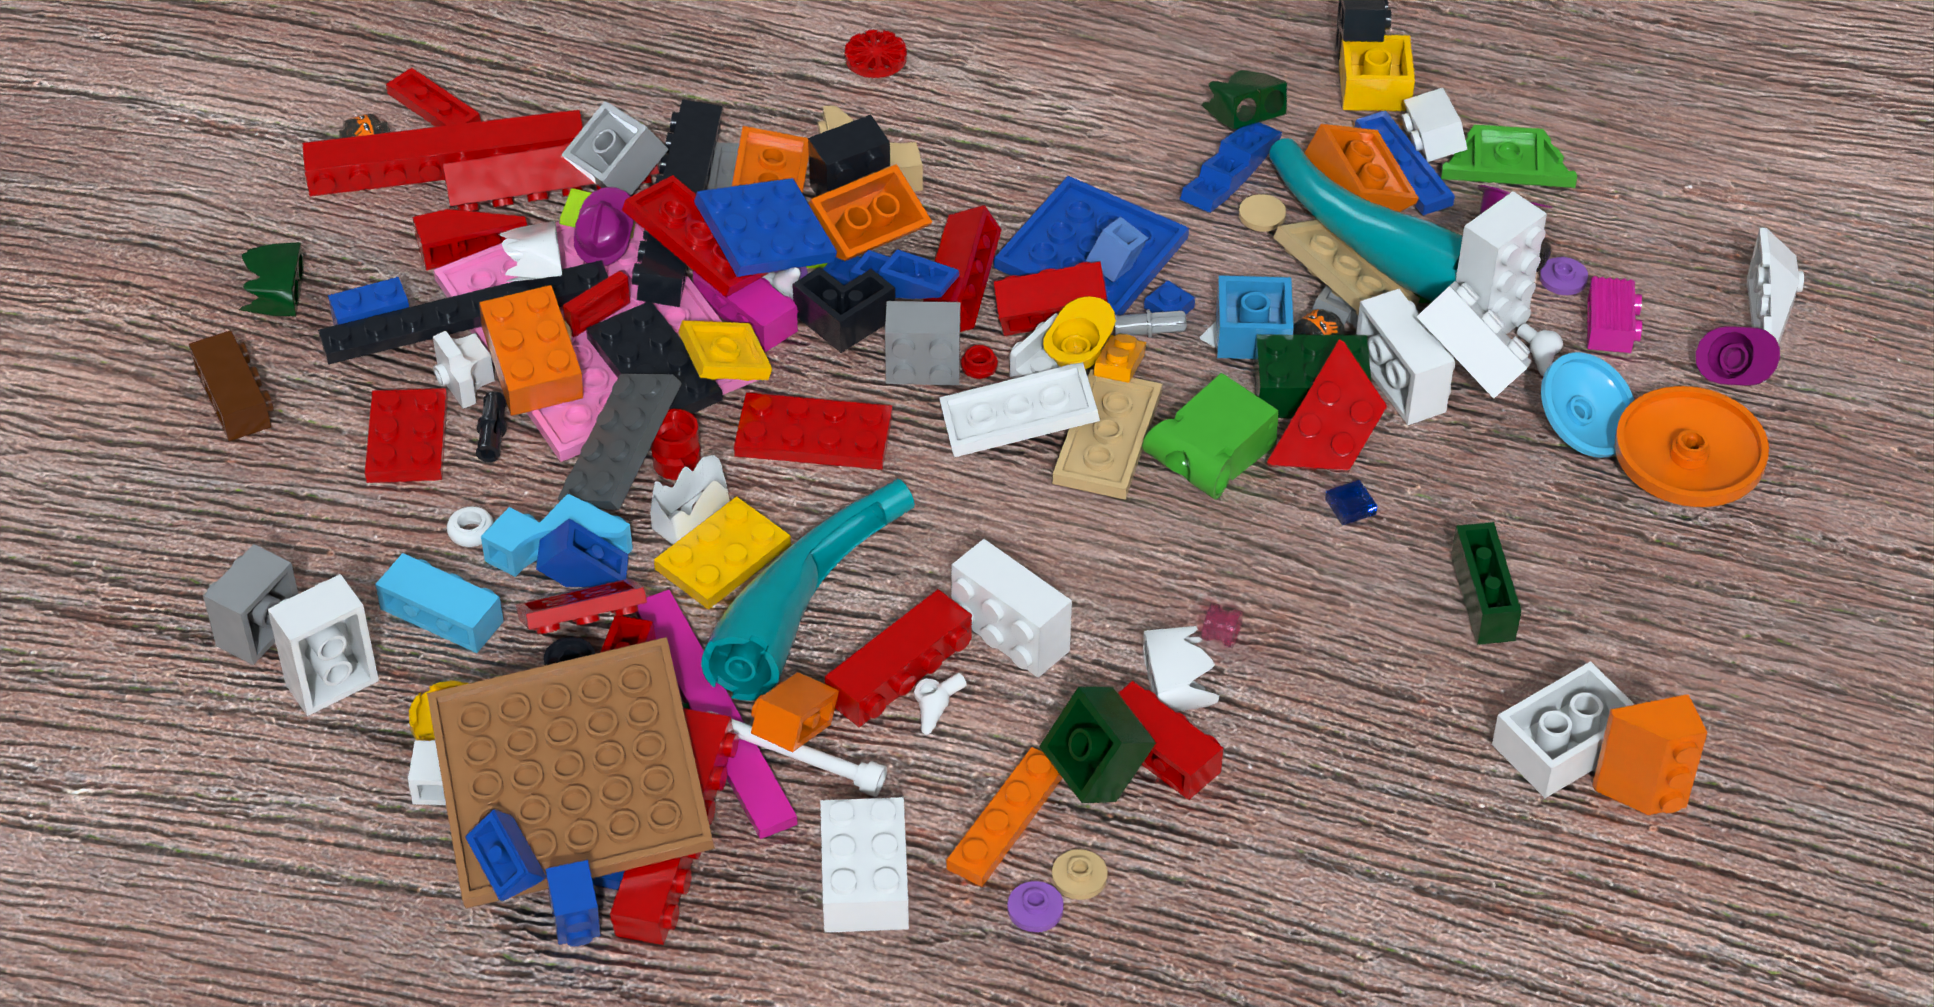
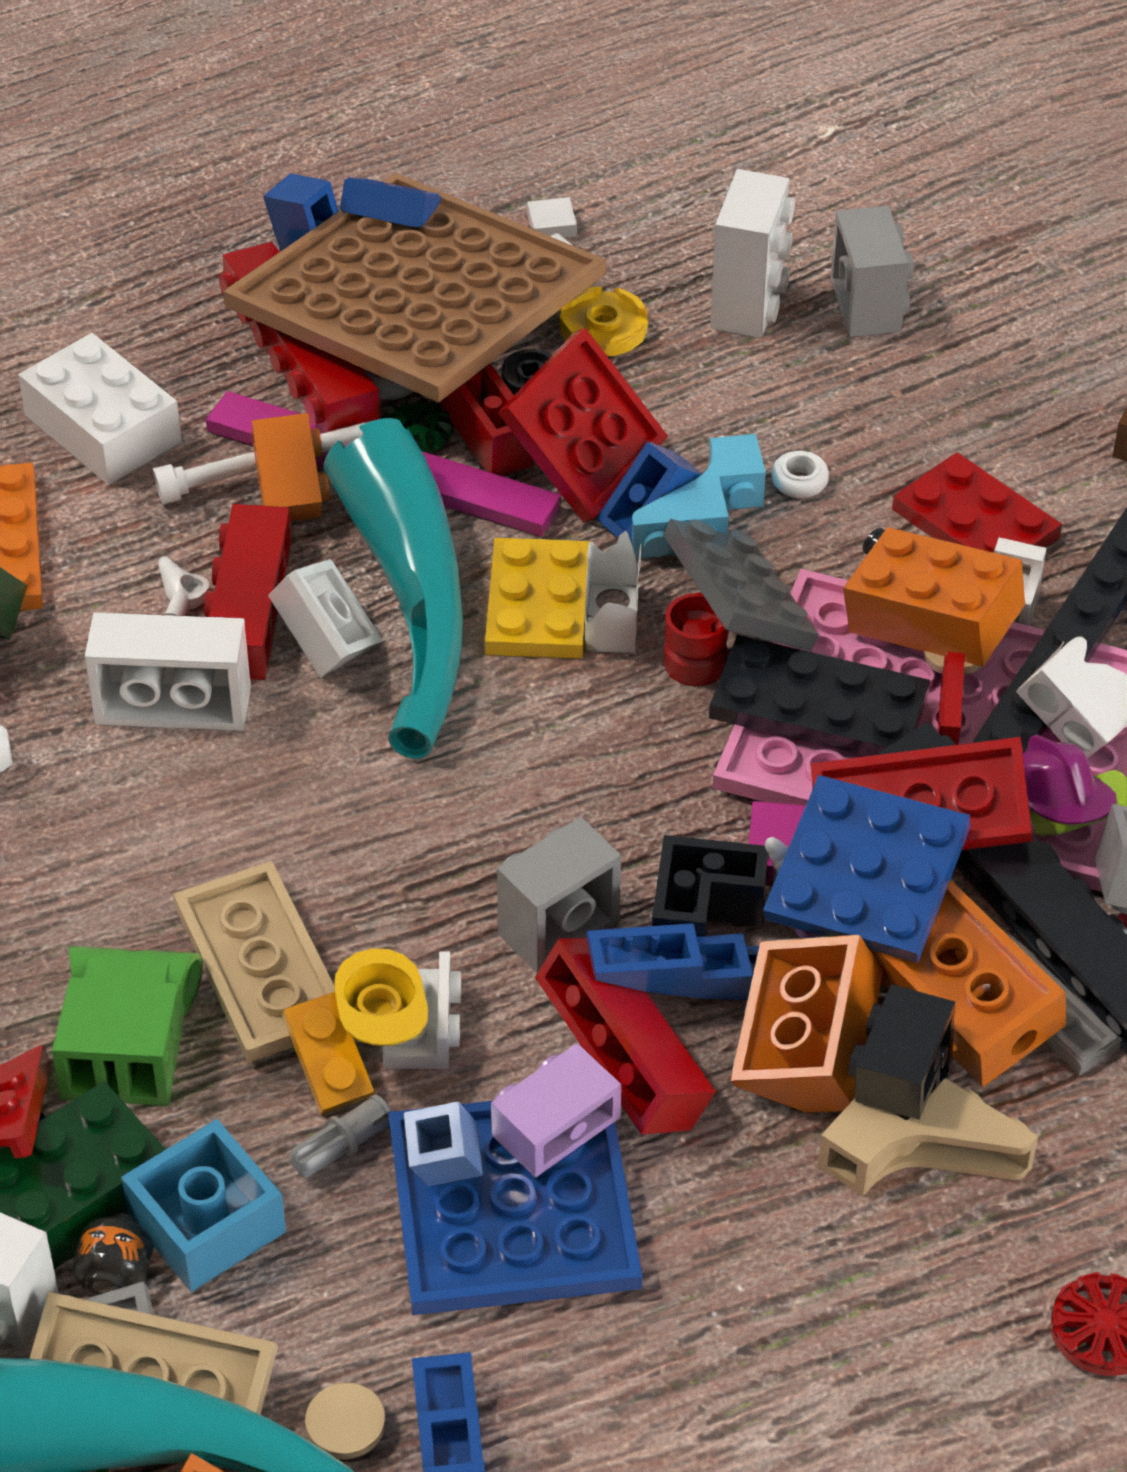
camera: 140 degrees right, 0 degrees up
(372, 838) = (552, 217): none -> white tile
(440, 602) = (730, 387): medium azure brick -> none
(725, 350) = (749, 730): yellow plate -> none
(813, 431) = (590, 769): red plate -> none
(879, 587) = (324, 616): none -> white slope
(979, 362) = (494, 946): red plate -> none
(1019, 409) = (378, 899): white plate -> none
(1036, 297) = (474, 1054): red brick -> none
(1039, 243) = (555, 1109): none -> lavender brick
(1169, 298) = (348, 1197): blue plate -> none

